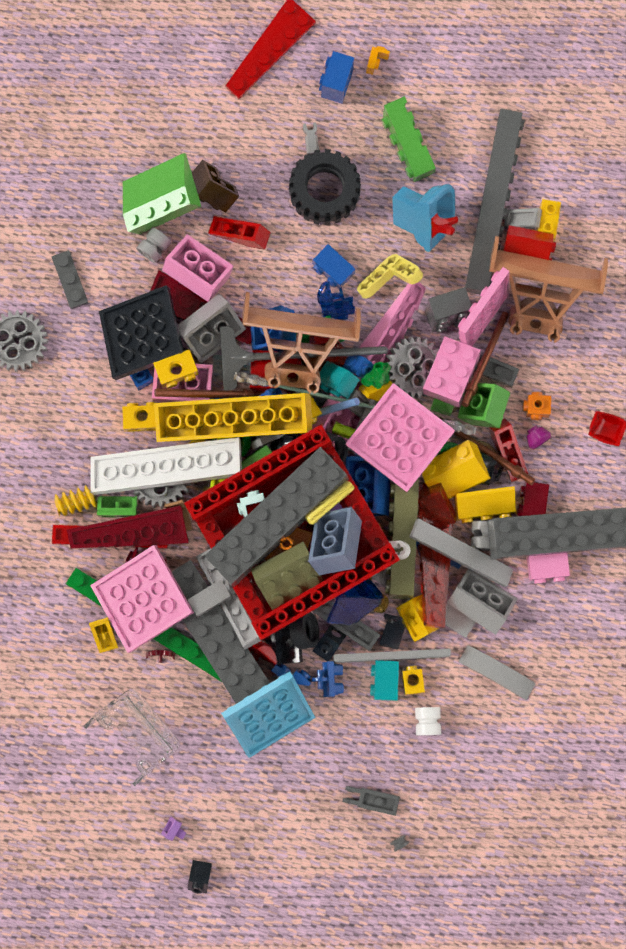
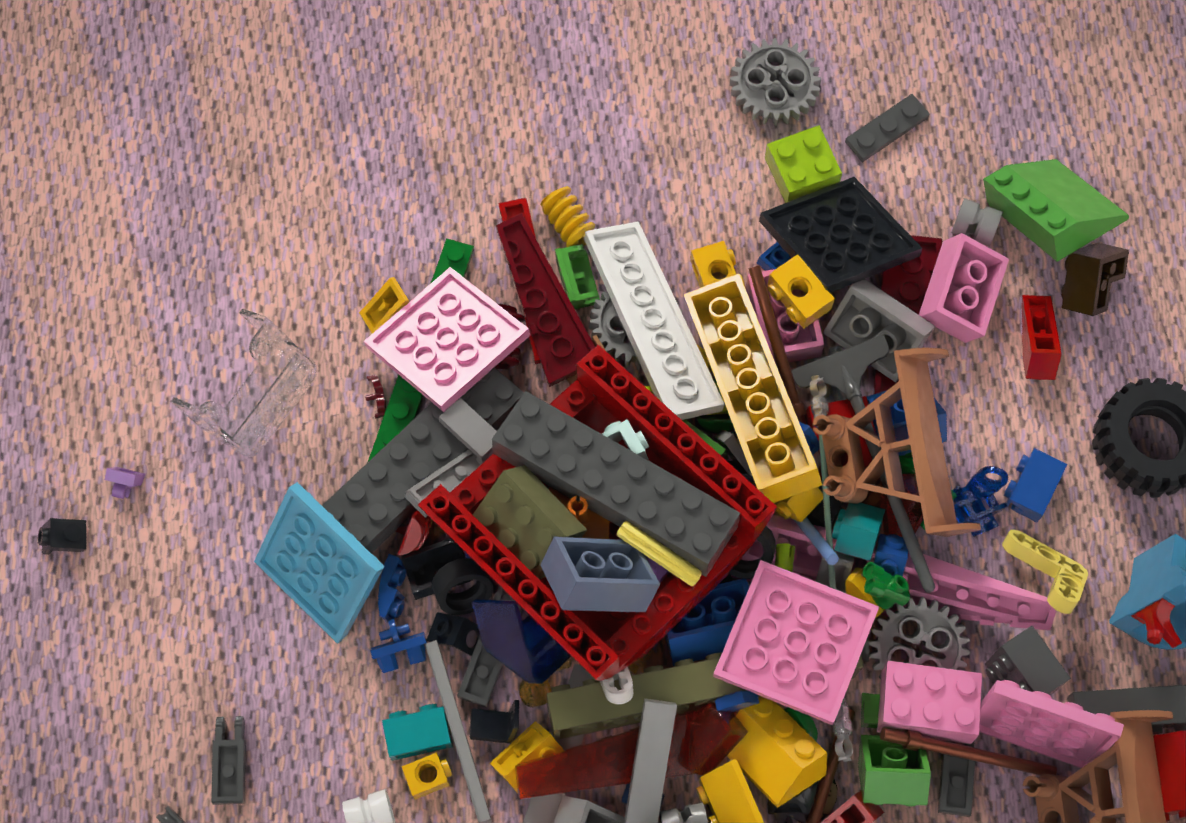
camera: 80 degrees right, 10 degrees down
(82, 341) = (802, 163): none -> lime brick
(423, 484) = (736, 701): none -> blue tile

